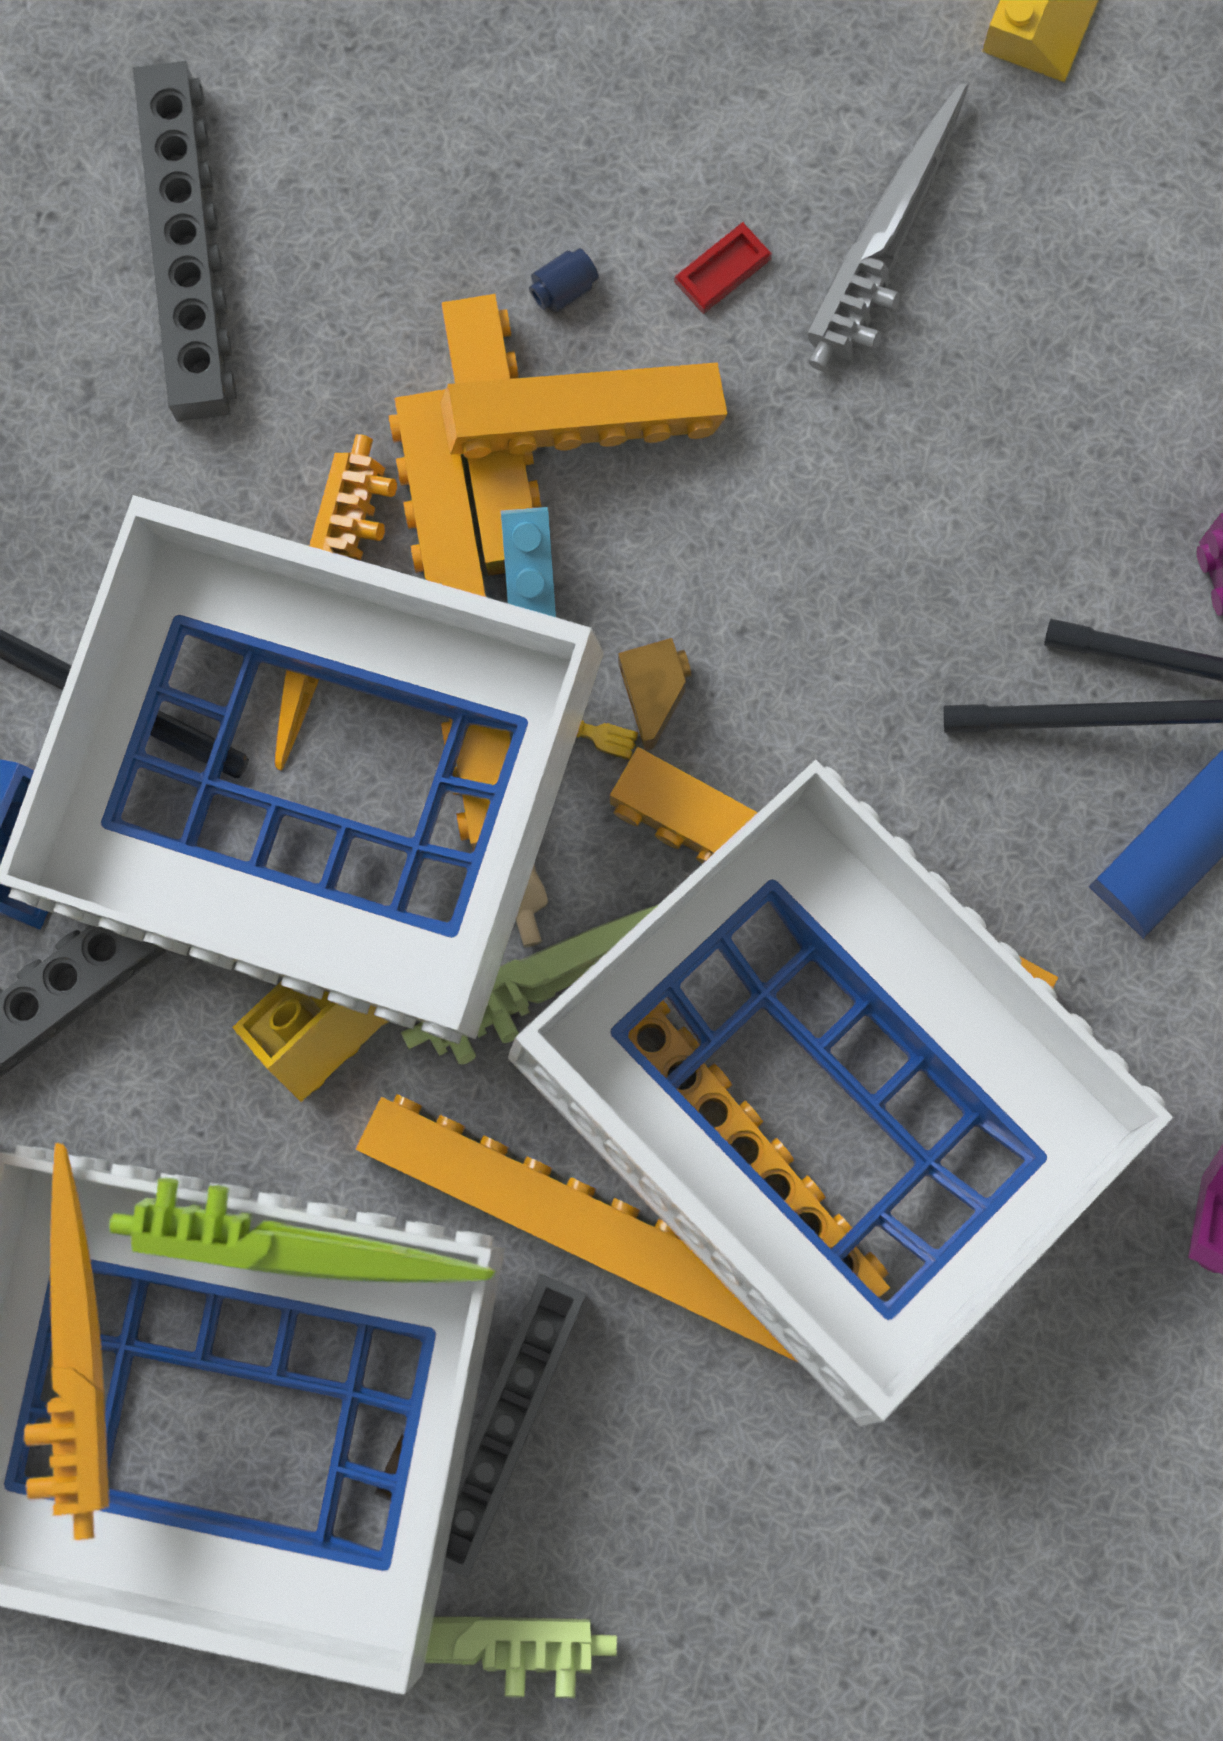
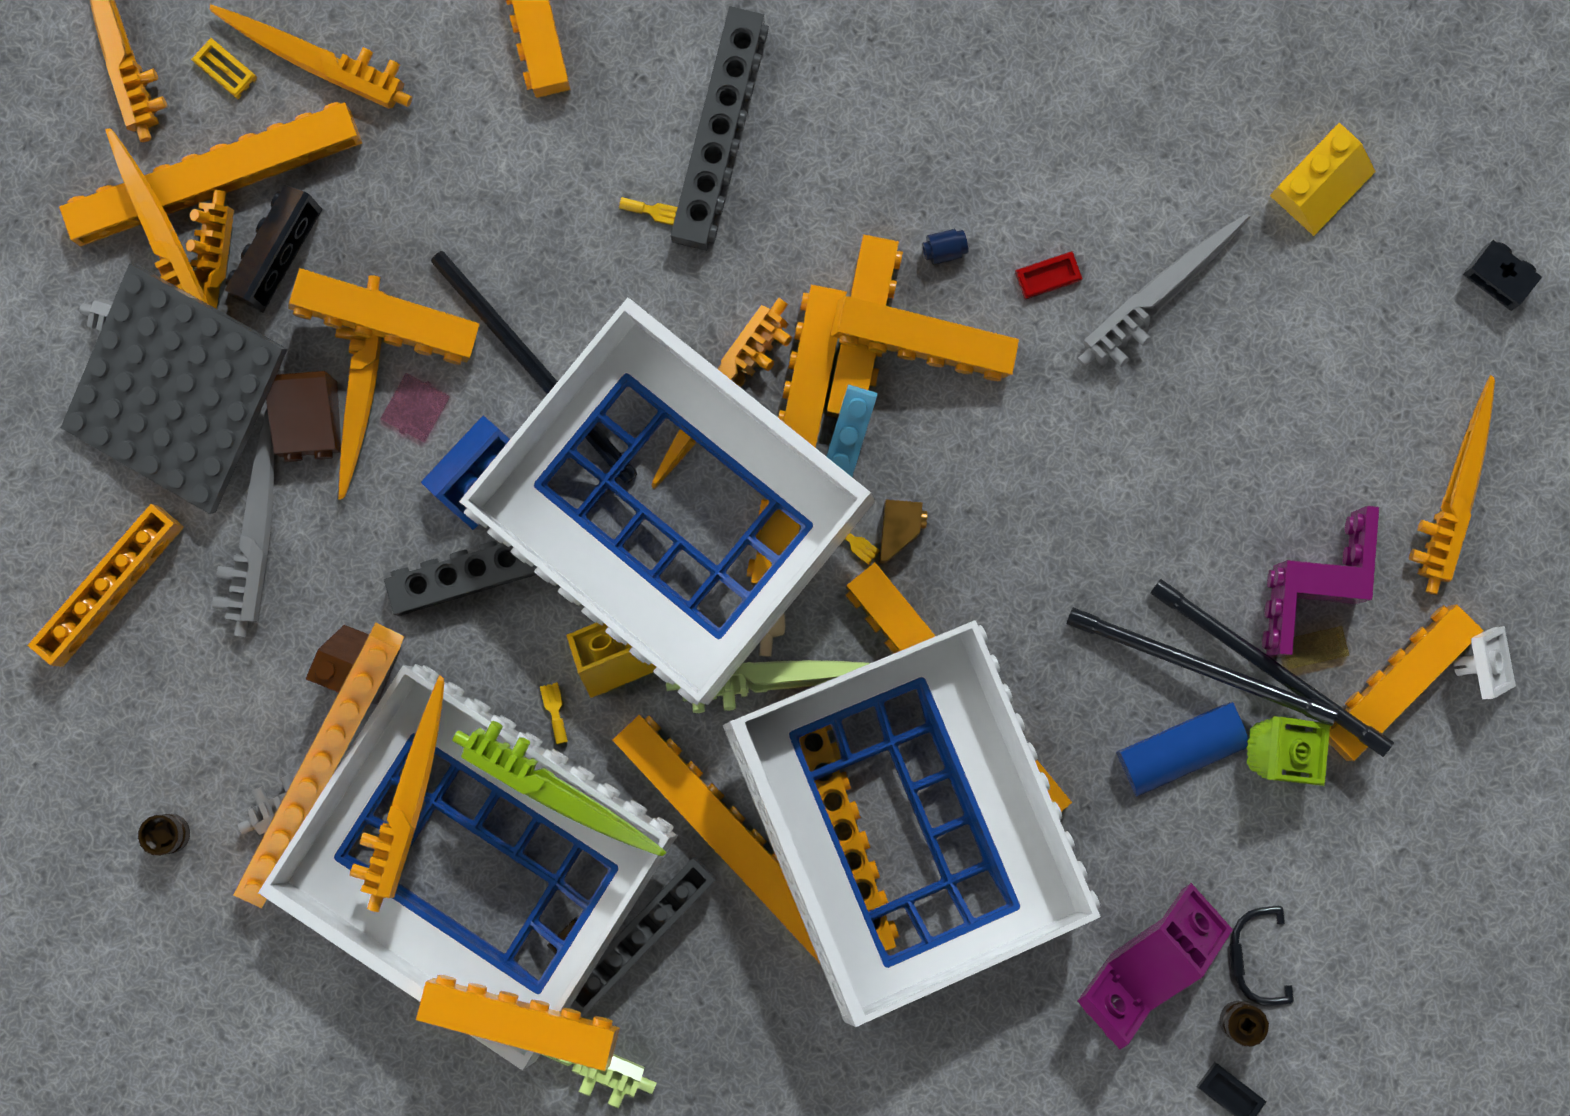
camera: 20 degrees right, 5 degrees up
(141, 386) = (659, 212): none -> yellow piece
(250, 1133) = (553, 702): none -> yellow piece
(369, 1622) = (518, 1023): none -> light orange brick

